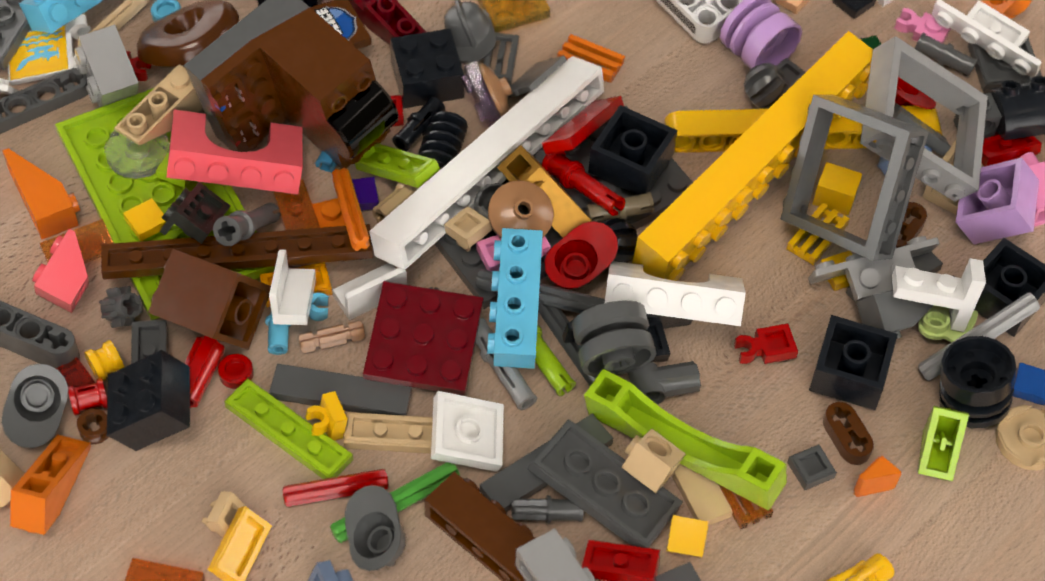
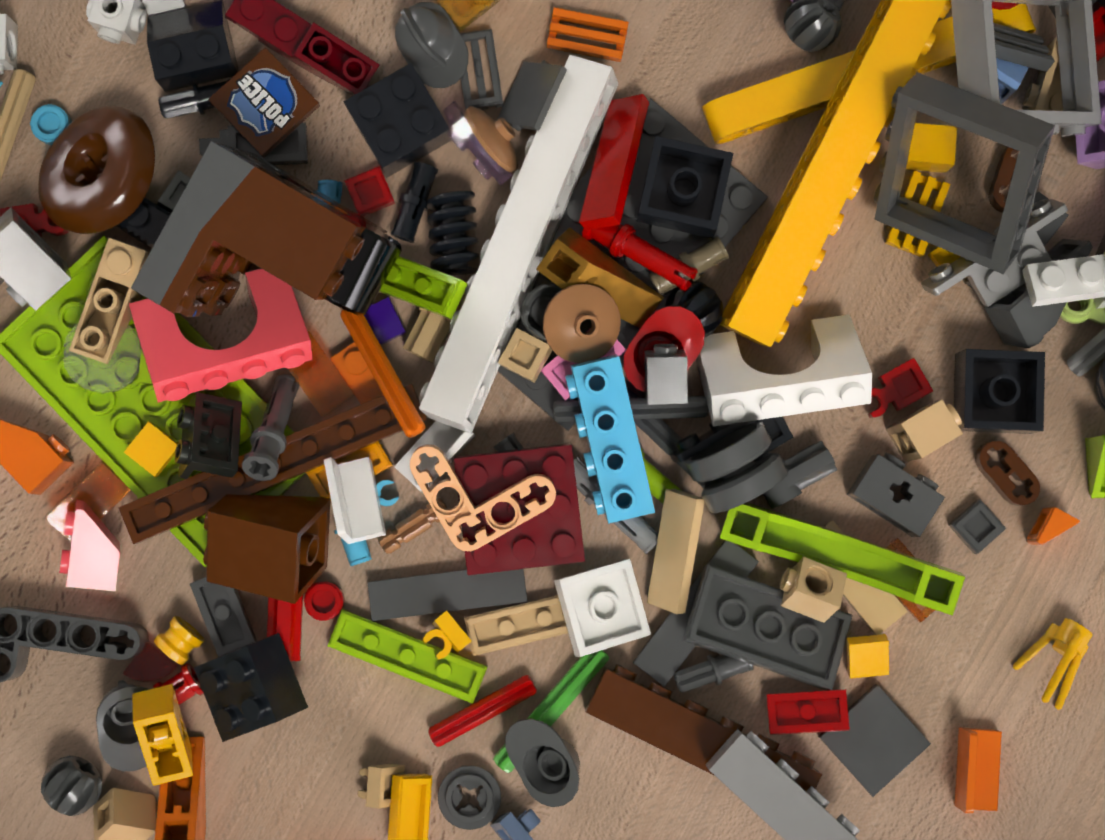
camera: 15 degrees left, 30 degrees up
(60, 408) = (162, 734): none -> yellow brick
(86, 433) = (189, 718): reddish brown bush -> none
(120, 306) = (169, 568): dark grey gear -> none
(306, 538) = (469, 816): none -> dark grey gear
(381, 317) = (466, 511): none -> light nougat beam
(544, 403) = (675, 551): none -> tan tile
(576, 266) = (665, 375): none -> brick
(745, 416) = (906, 514): none -> dark grey brick
(782, 369) = (925, 430): none -> tan brick

